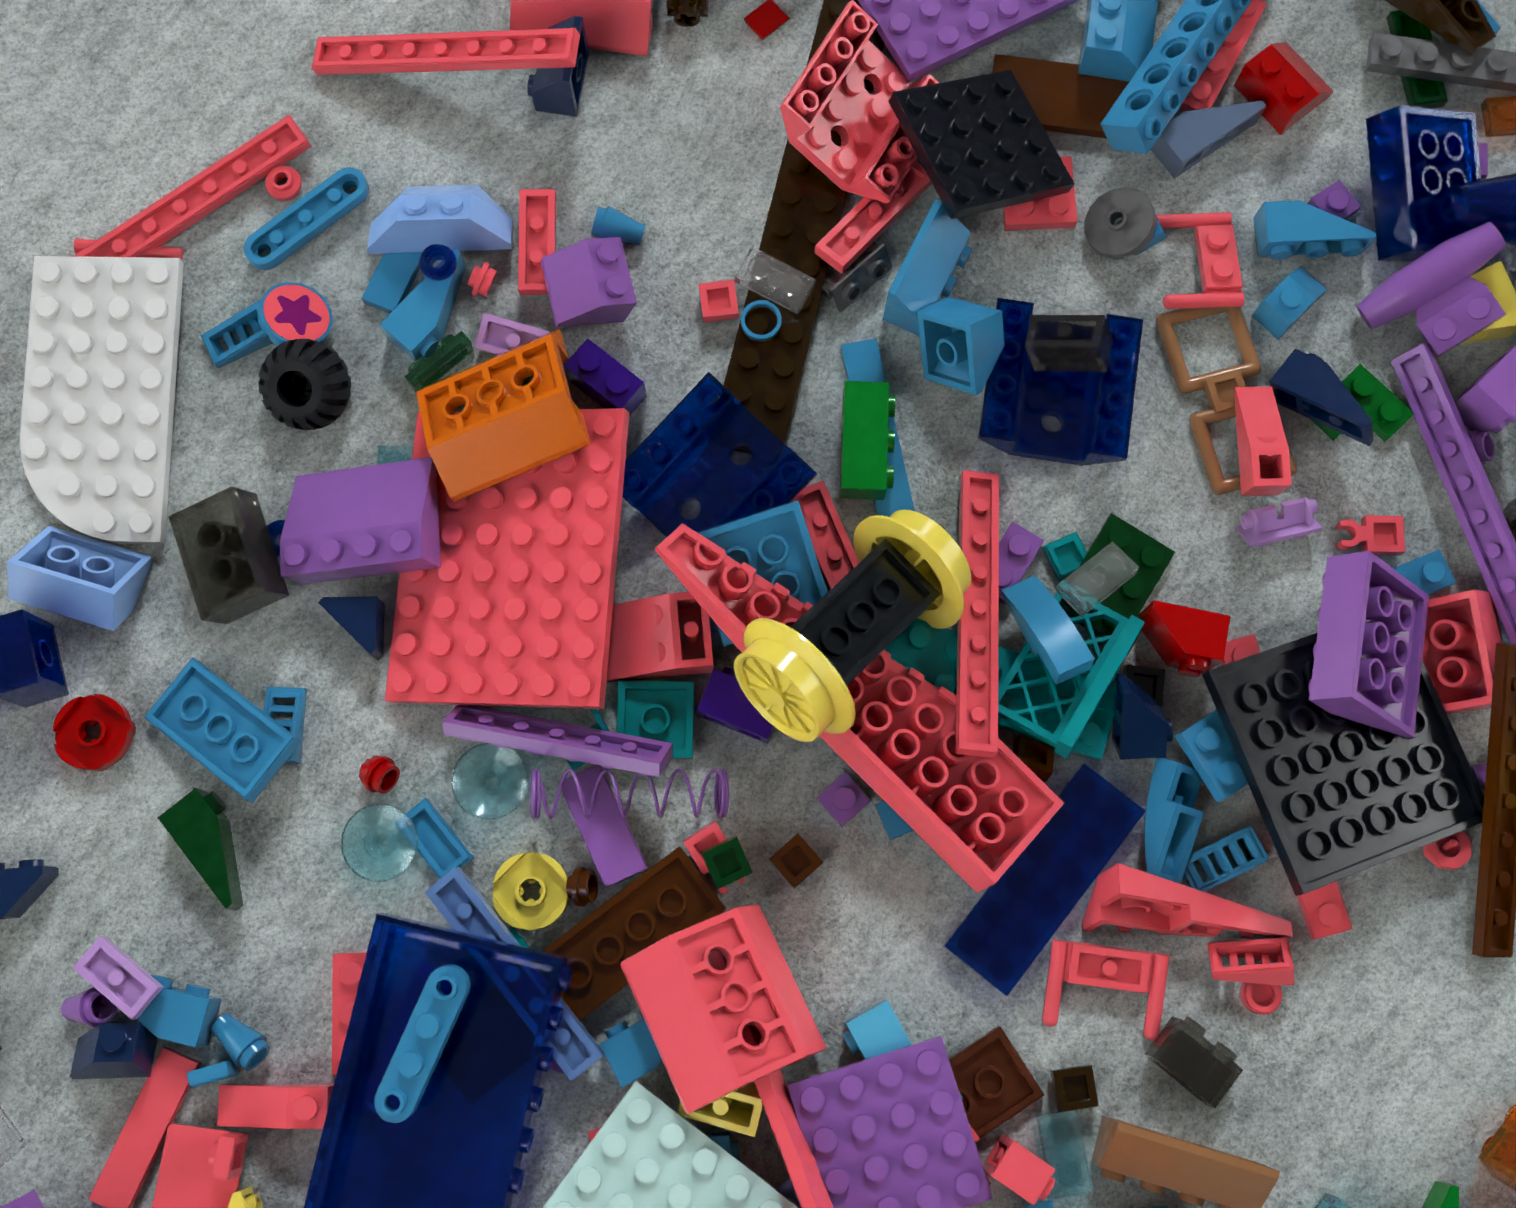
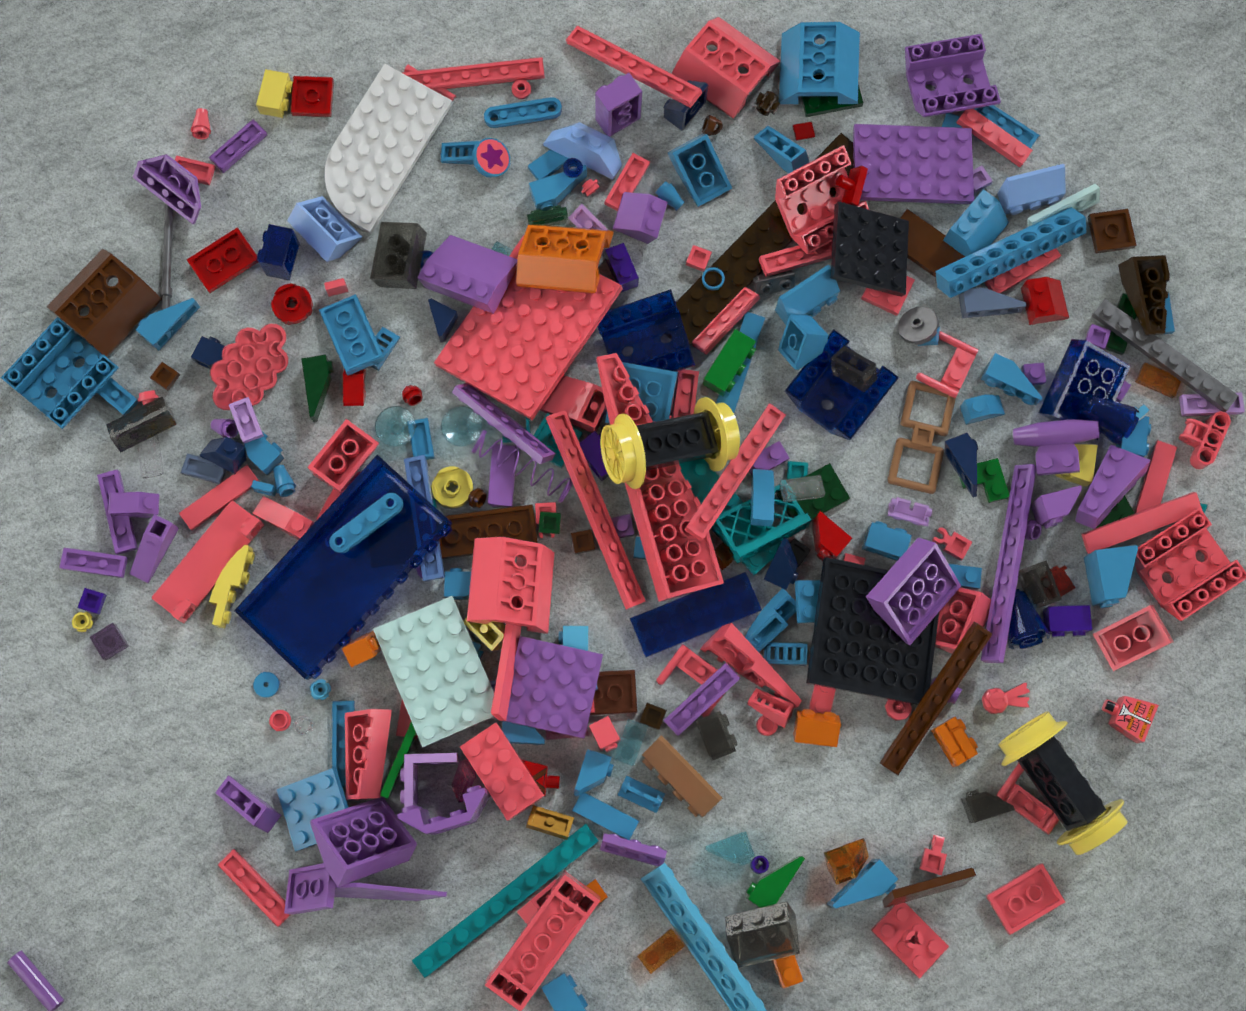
camera: 25 degrees right, 0 degrees up
(74, 878) = (249, 365): none -> coral plate
(90, 1098) = (202, 469): none -> sand blue tile
(152, 664) = (336, 287): none -> coral tile
(276, 818) = (354, 388): none -> red slope
(284, 384) = (469, 186): black wheel -> none
(319, 944) = (343, 456): none -> coral slope
(454, 122) = (618, 104): none -> medium lavender brick
(616, 83) = (709, 125): none -> reddish brown tile
(640, 160) = (700, 169): none -> dark azure slope
(754, 64) = (781, 149): none -> dark azure slope
(774, 280) = (730, 262): clear plate -> none
(788, 798) = (595, 509): none -> coral plate
(817, 376) = (725, 320): none -> coral tile
(897, 56) = (852, 184): none -> red tile
(1139, 1015) = (701, 699): none -> medium lavender plate
(1261, 443) = (921, 467): coral slope -> none
(1272, 589) = (886, 541): none -> dark azure brick
(1346, 956) = (817, 728): none -> orange brick
(1393, 93) = (1098, 336): none -> medium lavender plate

